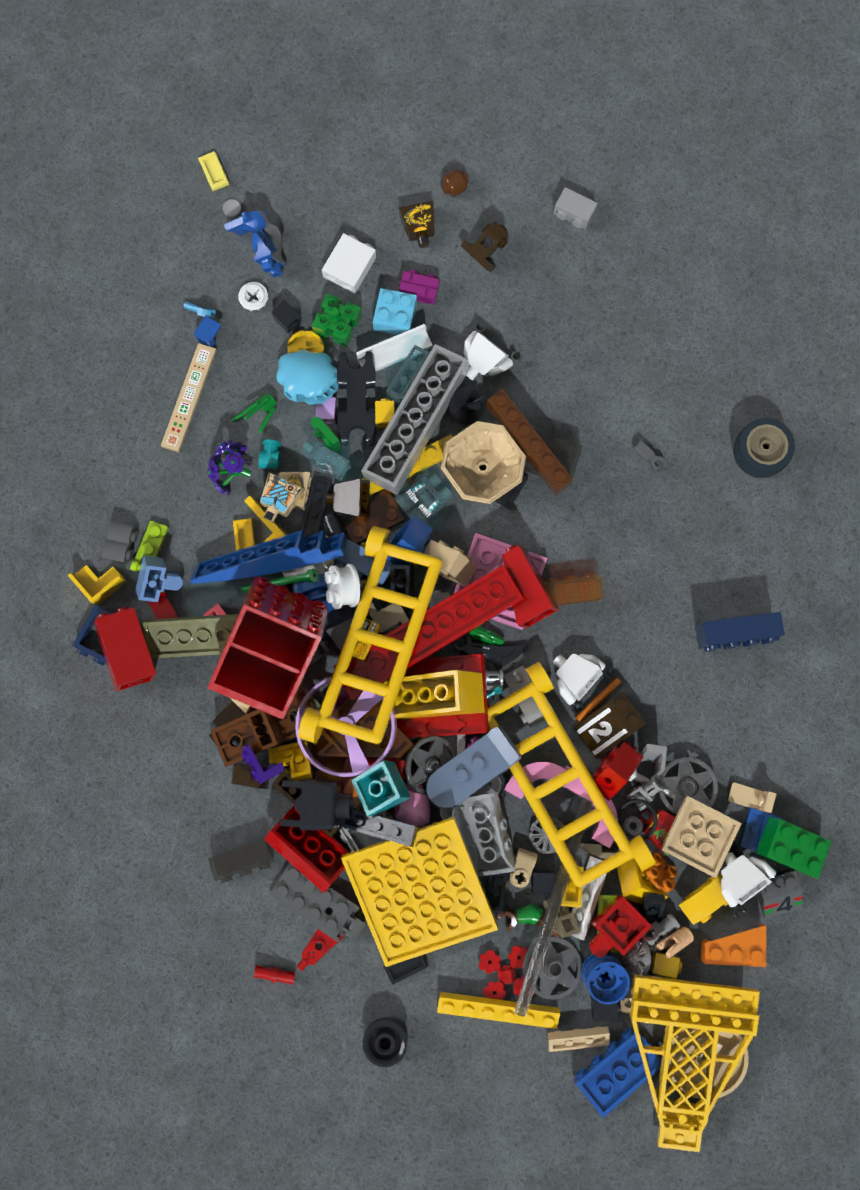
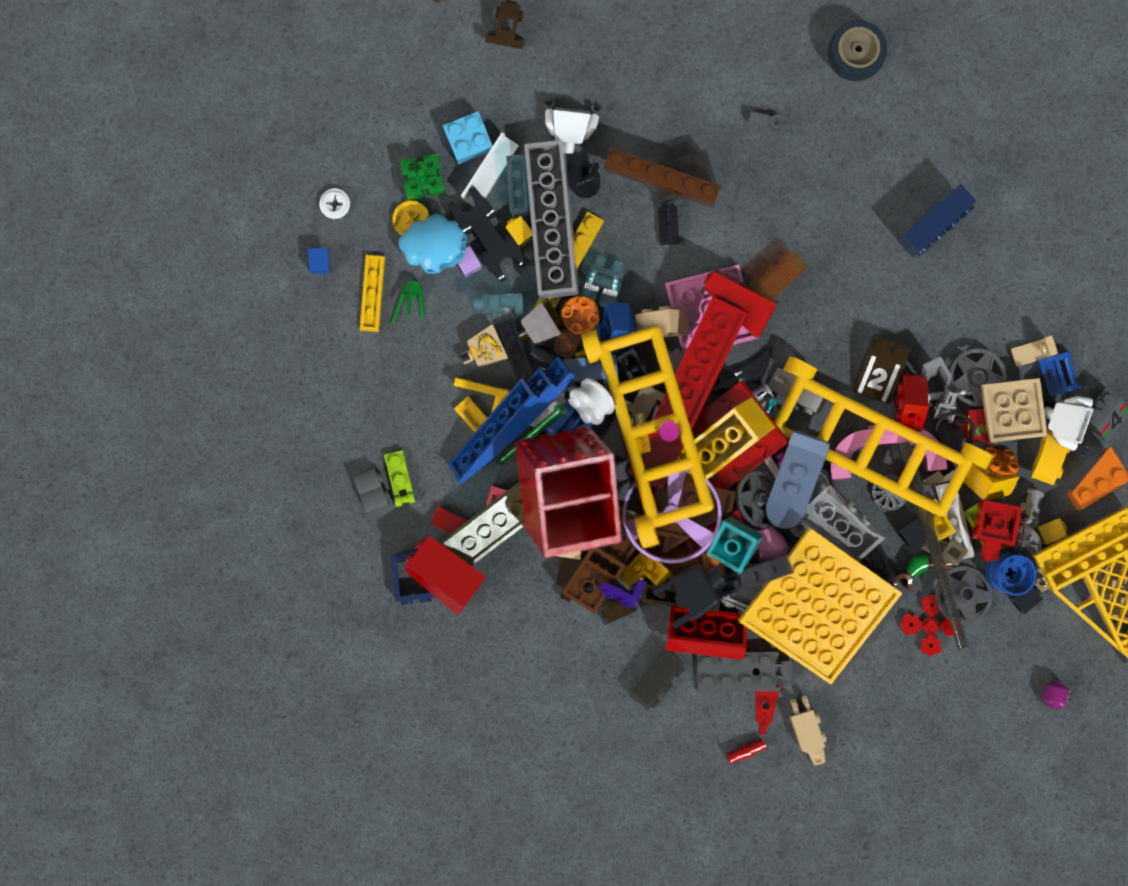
camera: 35 degrees left, 5 degrees up
(97, 588) = (381, 540): yellow panel -> none
(155, 578) = (425, 500): medium blue brick -> none
(188, 398) = (341, 328): tan tile -> none
(202, 311) = (302, 246): dark azure bar -> none
(213, 171) = (220, 114): light yellow tile -> none
(232, 208) = (259, 137): light grey piece -> none
(233, 386) = (372, 293): none -> yellow tile
(233, 463) = (427, 363): dark purple plant -> none
(266, 239) = (314, 147): blue hips -> none
(270, 456) = (446, 331): teal piece -> none
(279, 497) = (483, 363): torso -> none
(286, 317) = (377, 203): black brick -> none
(322, 431) = (490, 285): green plate -> none
(337, 994) = (807, 731): none -> tan hinge
(349, 263) = (398, 119): white brick -> none
(381, 1055) = (883, 742): black wheel -> none
(387, 511) = (580, 314): none -> orange dish
(388, 652) = (669, 431): none -> dark pink piece
(404, 969) = (847, 676): black tile -> none
(418, 222) = (433, 44): dark brown torso -> none
(423, 286) = (473, 100): magenta brick -> none
(484, 446) = (637, 202): tan rock -> none
(486, 635) = (734, 362): green piece -> none
(497, 1010) = (942, 658): yellow plate -> none
(524, 863) = (887, 527): tan piece -> none
(575, 1113) = (1056, 695): none -> magenta head
(578, 675) = (829, 346): white torso -> none
(578, 1039) = (1021, 636): tan plate -> none
(598, 699) = (858, 354): orange bar -> none
(616, 1073) = (1067, 642): blue bracket -> none
(639, 825) = (960, 438): light grey plate -> none
(653, 907) = (1012, 492): black plate -> none
(676, 941) = (1048, 507): light nougat hinge -> none
(793, 847) = (1093, 369): green brick -> none

